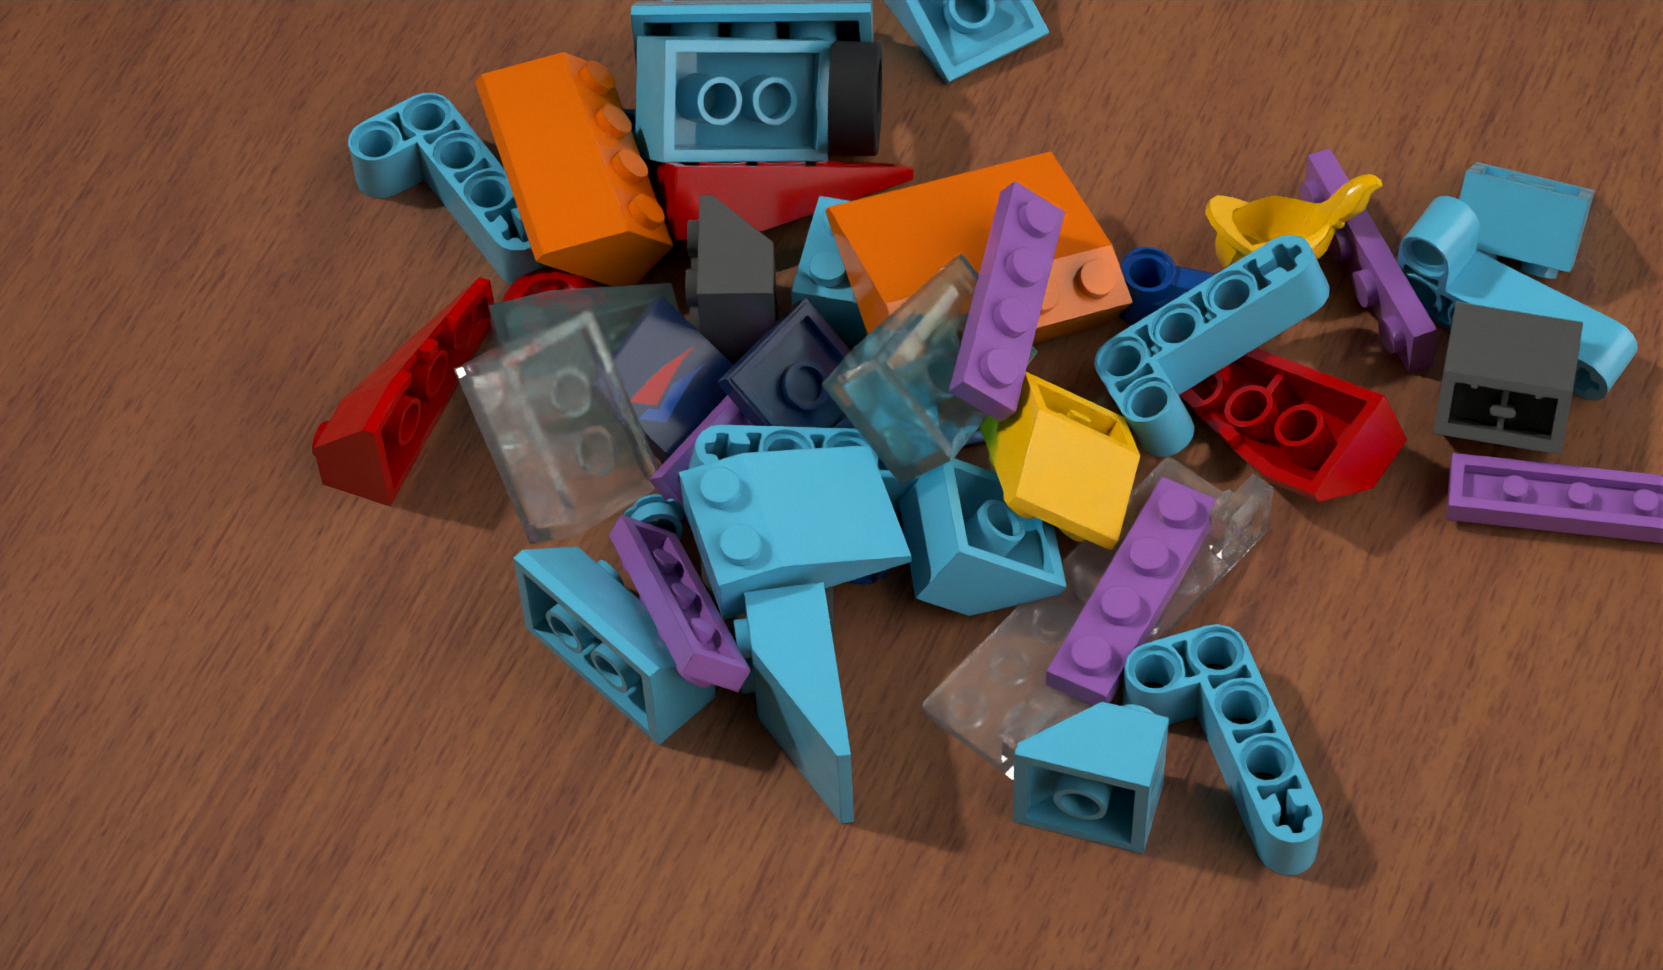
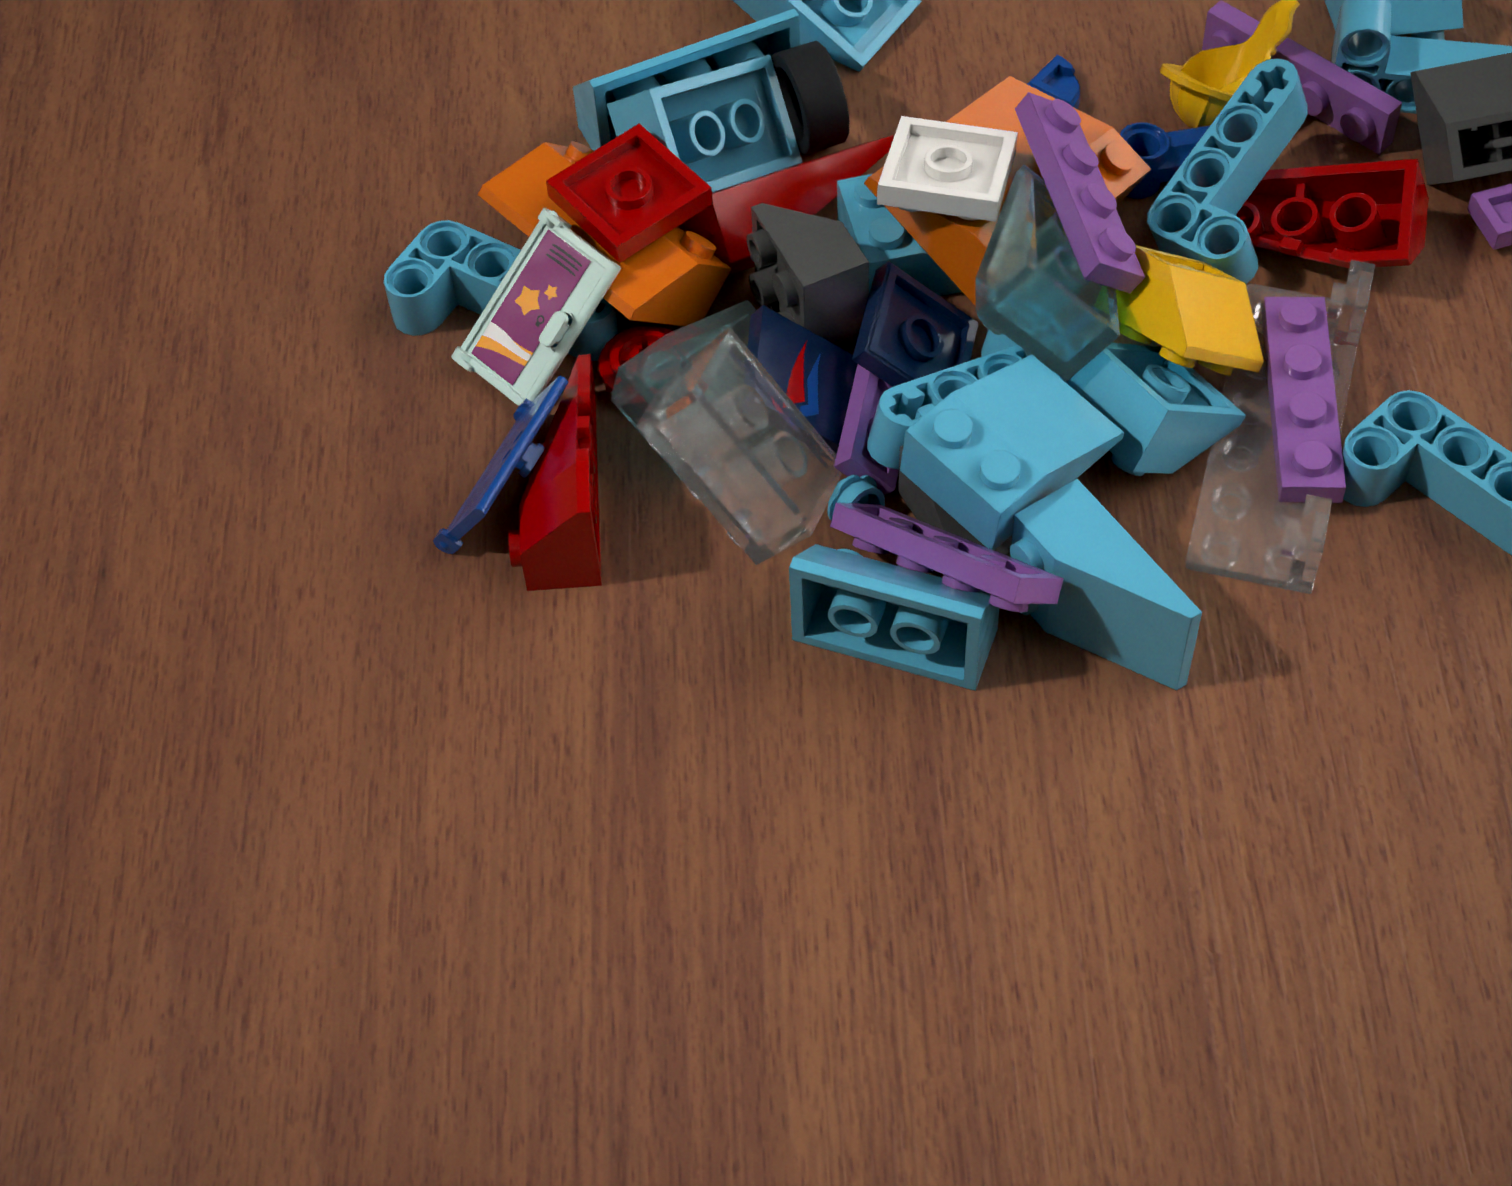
camera: 25 degrees left, 0 degrees up
(365, 353) = (514, 452): none -> blue door
(447, 231) = (530, 310): none -> door
(599, 136) = (629, 192): none -> red plate
(896, 228) = (947, 169): none -> white plate
(1094, 775) = (1395, 553): medium azure slope -> none
(1124, 178) = (1058, 81): none -> blue tile

